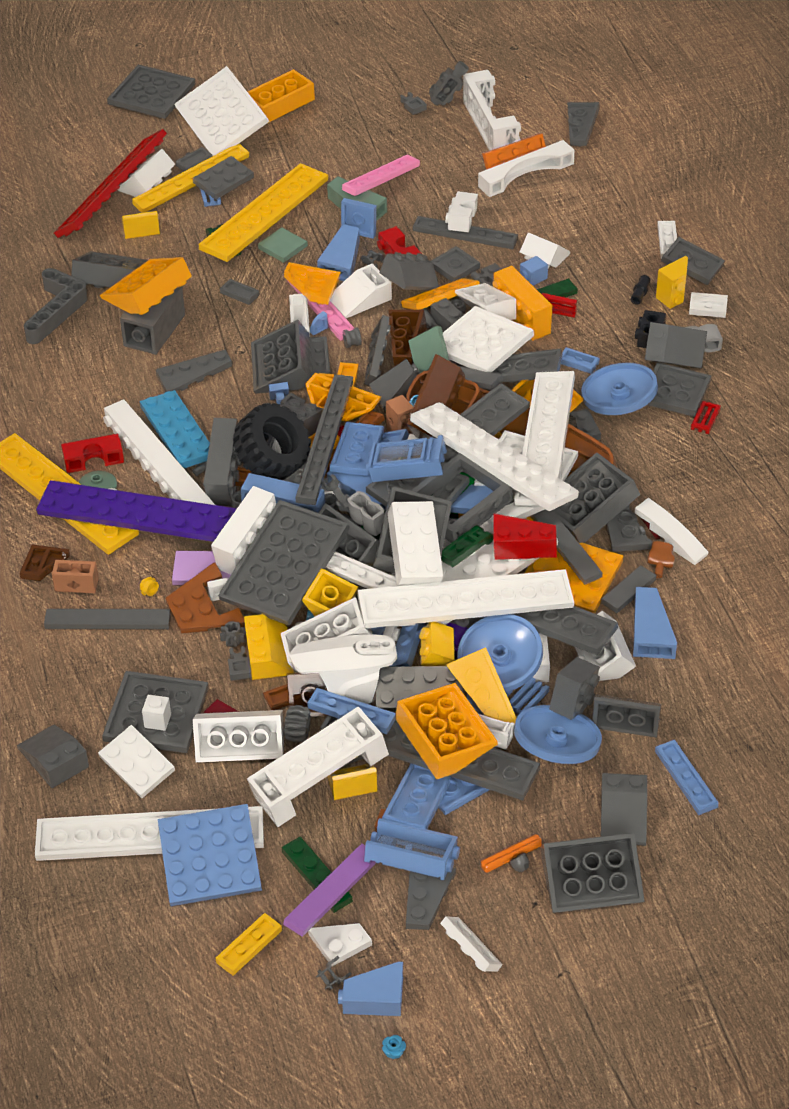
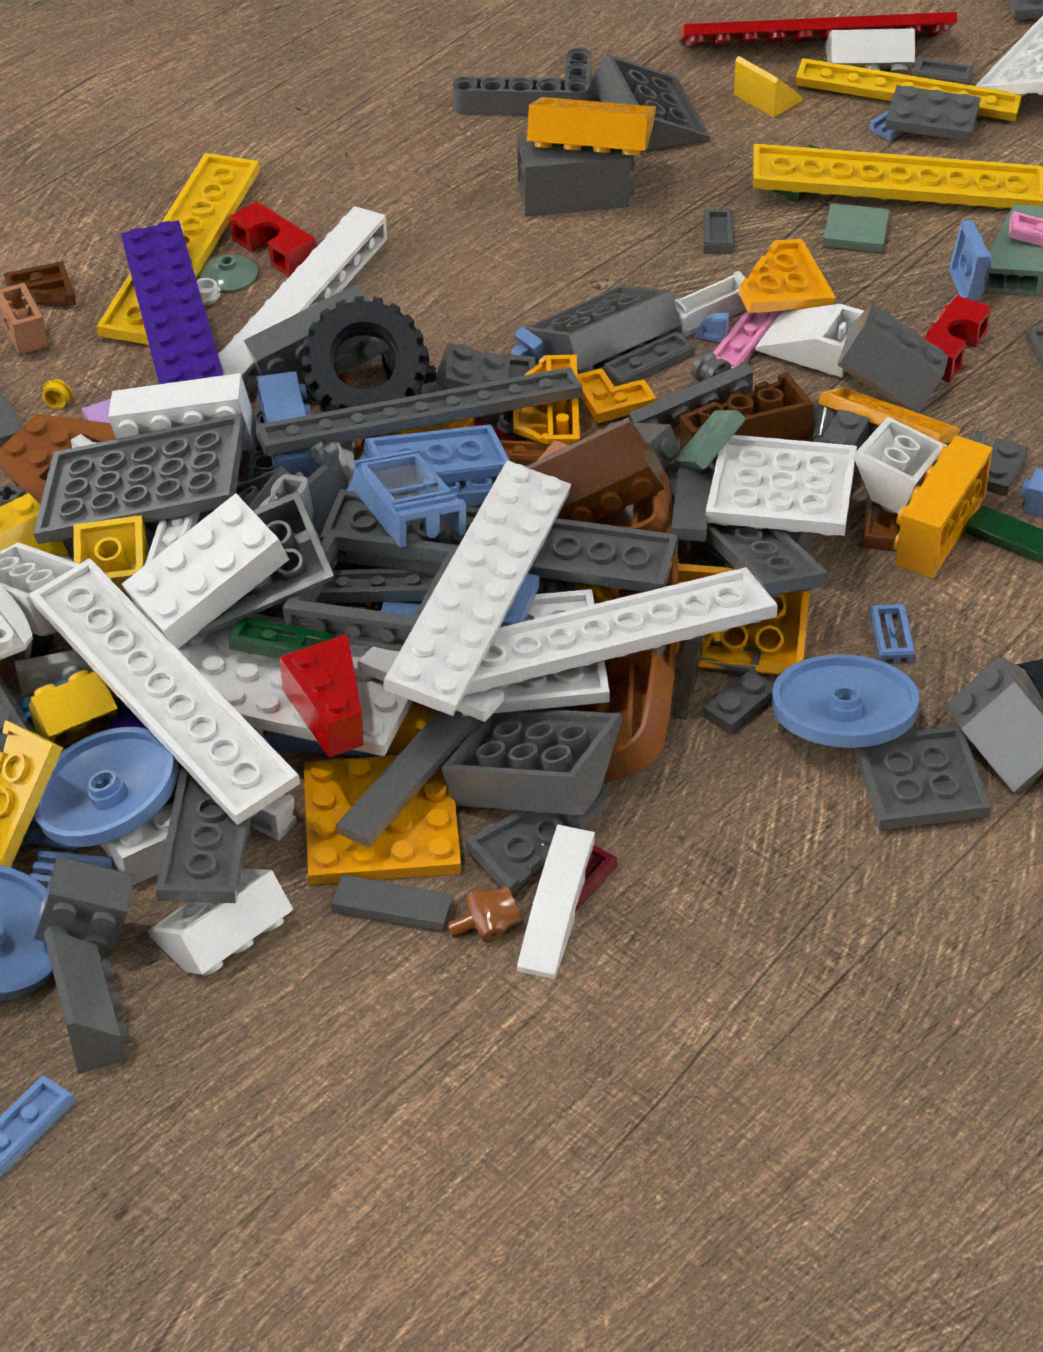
camera: 60 degrees right, 0 degrees up
(176, 428) = (401, 272): dark azure plate -> none
(186, 372) = (514, 257): dark grey wing -> none
(341, 252) = (891, 282): medium blue slope -> none
(372, 254) = (915, 316): dark grey piece -> none
(455, 264) = (981, 406): dark grey plate -> none
(559, 308) = (994, 554): red tile -> none
(652, 627) = (317, 959): medium blue slope -> none
(702, 426) = (891, 850): red tile -> none

